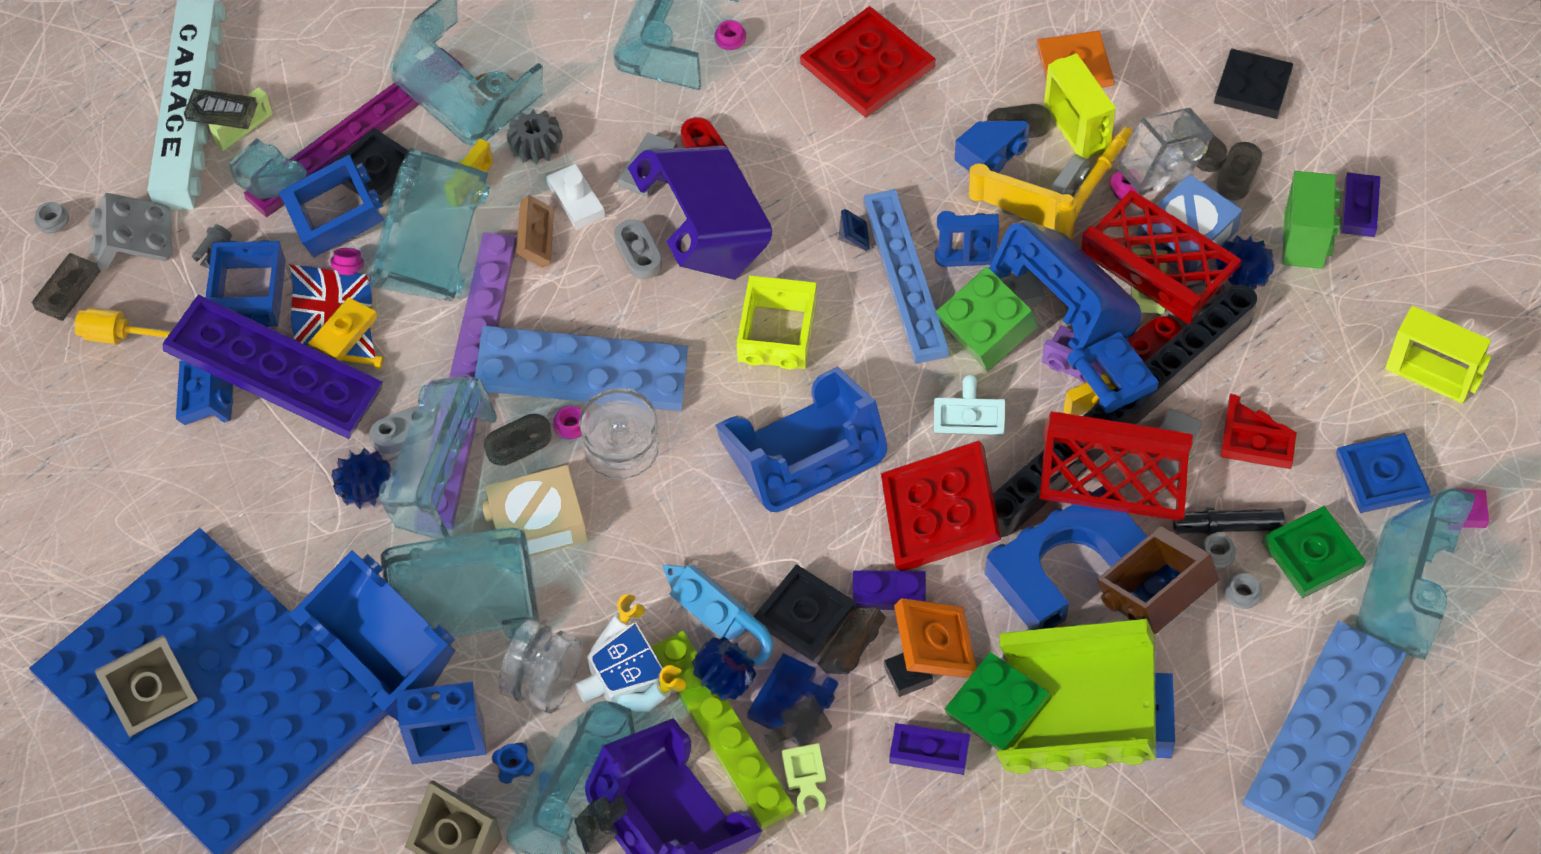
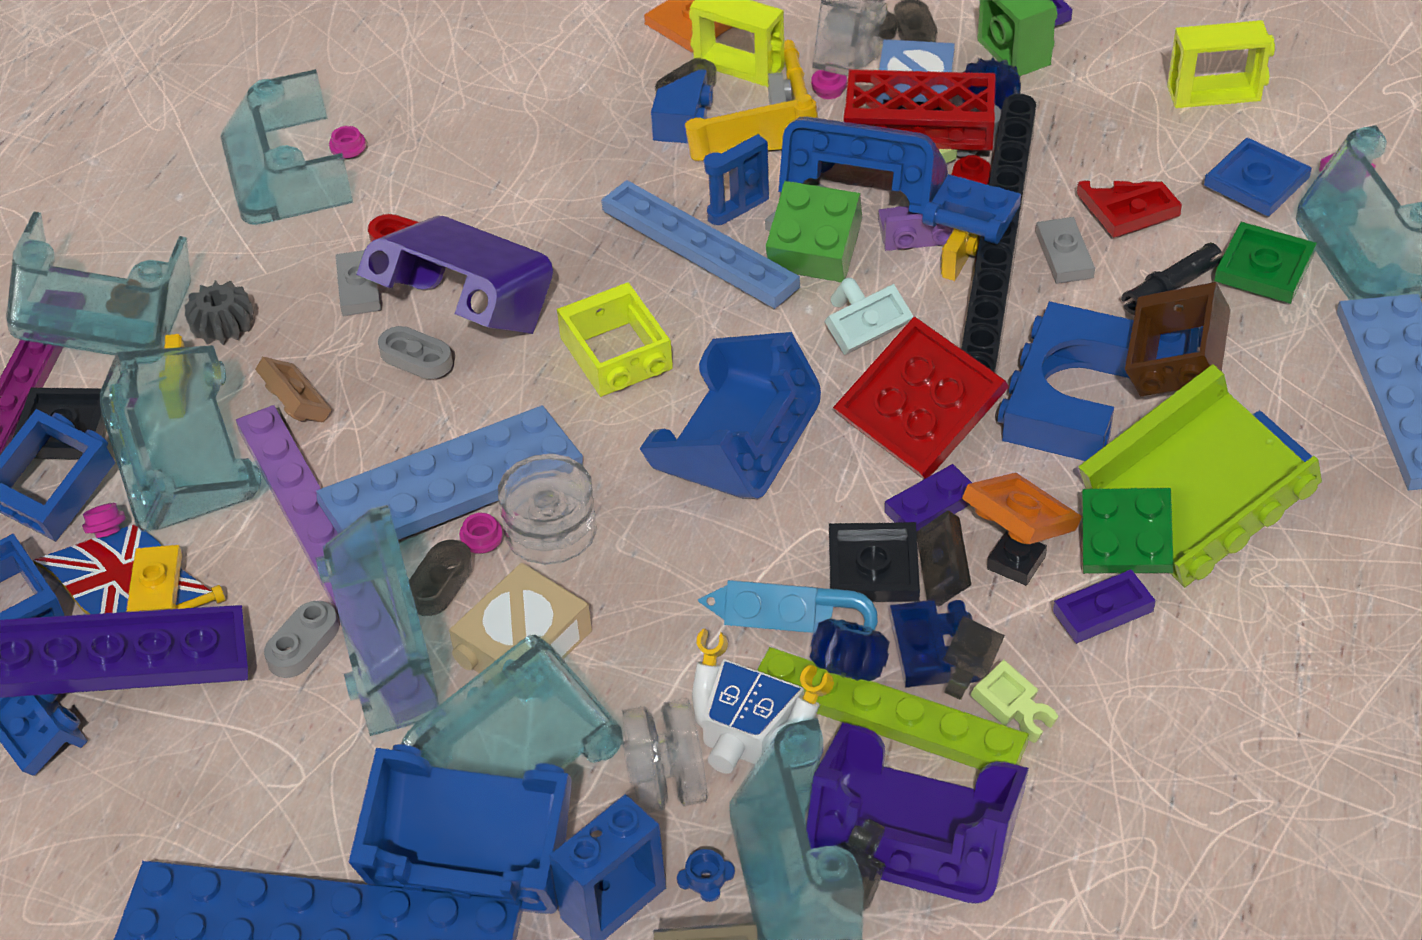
camera: 35 degrees left, 10 degrees down
(360, 477) = (297, 705): clear blue gear -> none
(575, 196) = (306, 344): white tile -> none
(853, 230) = (614, 236): dark blue slope -> none
(867, 61) = (502, 101): red plate -> none
(1122, 438) = (1034, 253): red fence -> none
(1243, 582) = (1243, 323): light grey plate -> none

